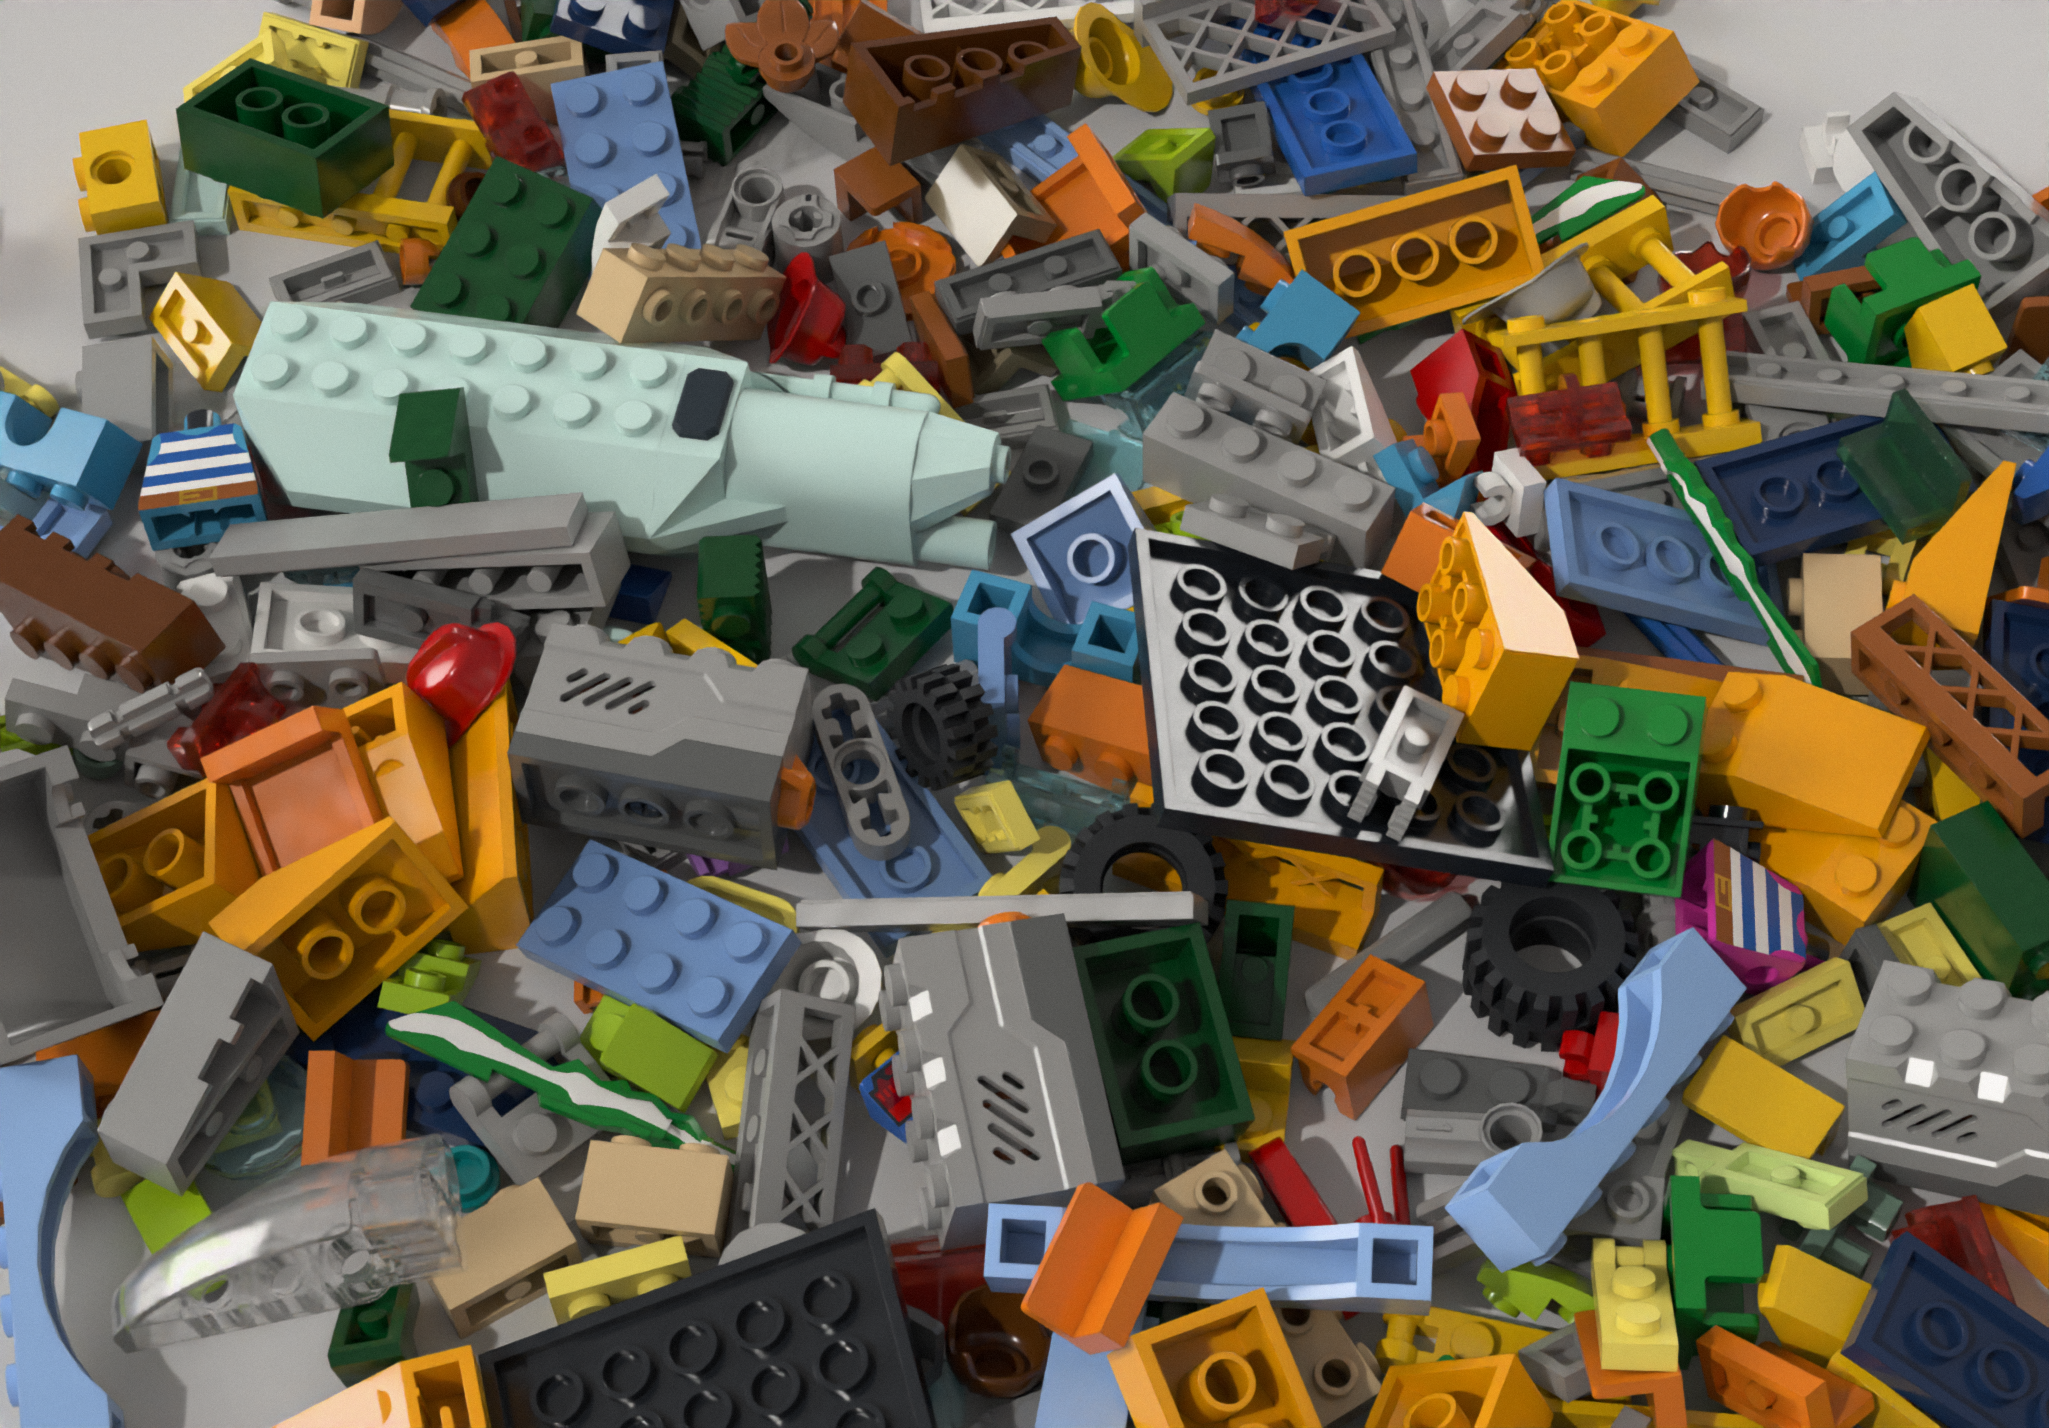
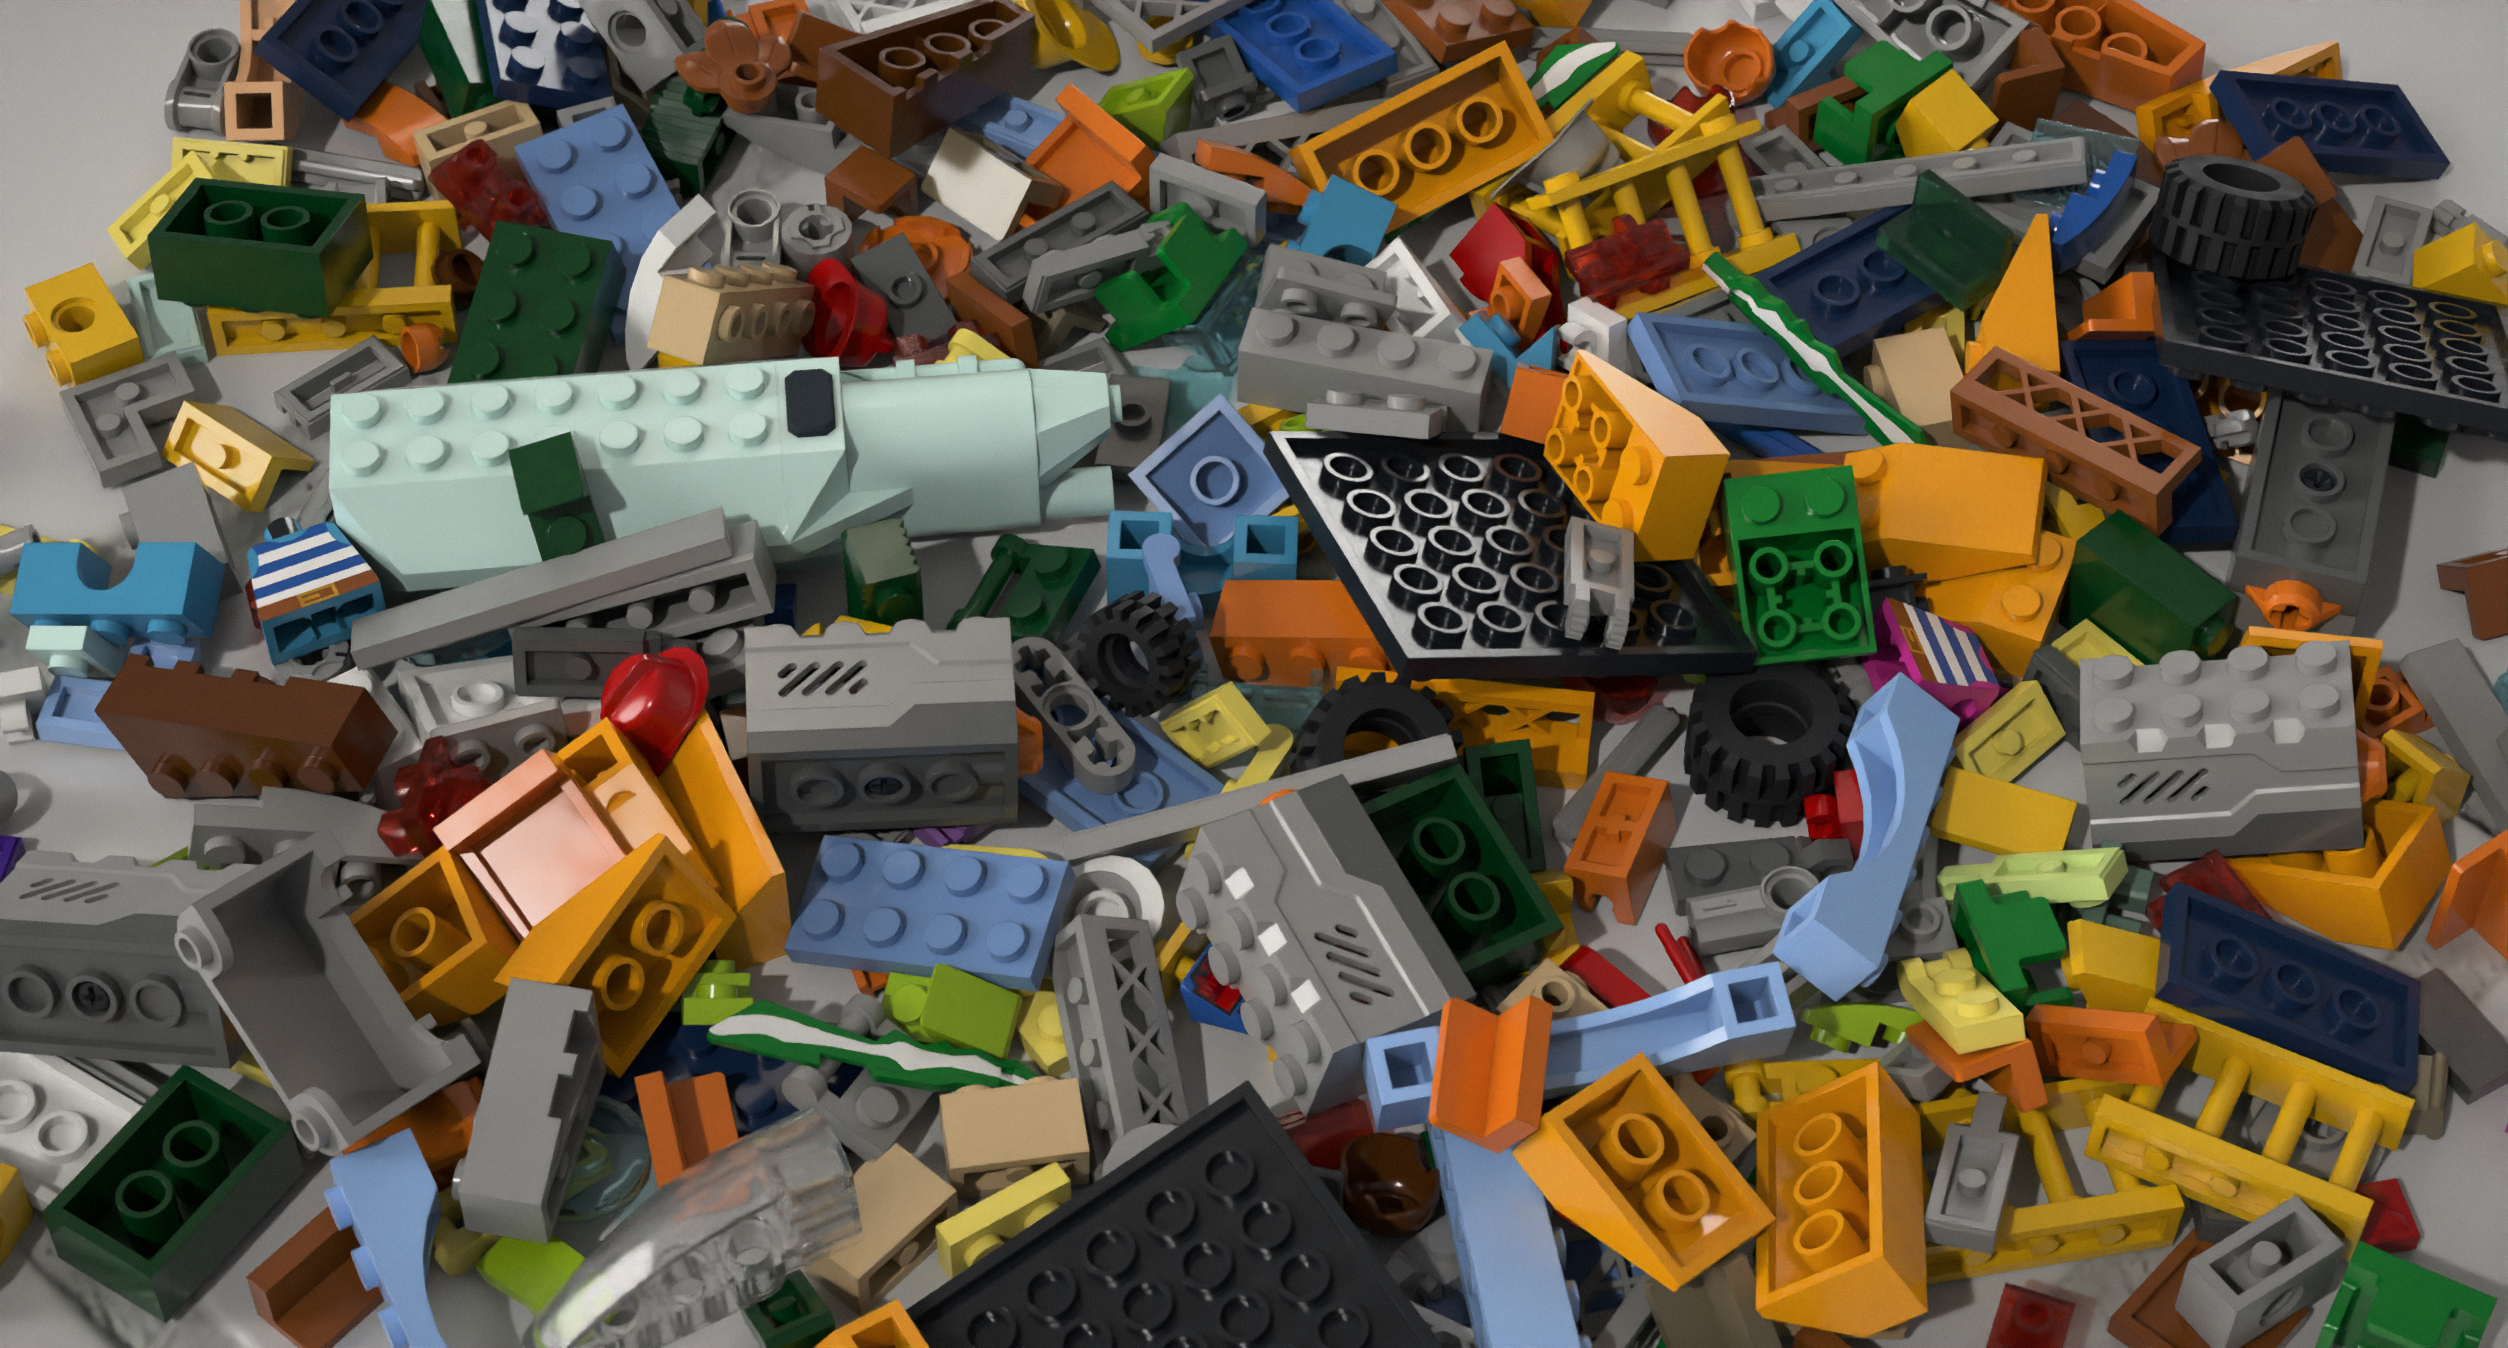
camera: 20 degrees left, 5 degrees down
(151, 709) = (353, 798): light grey axle -> none

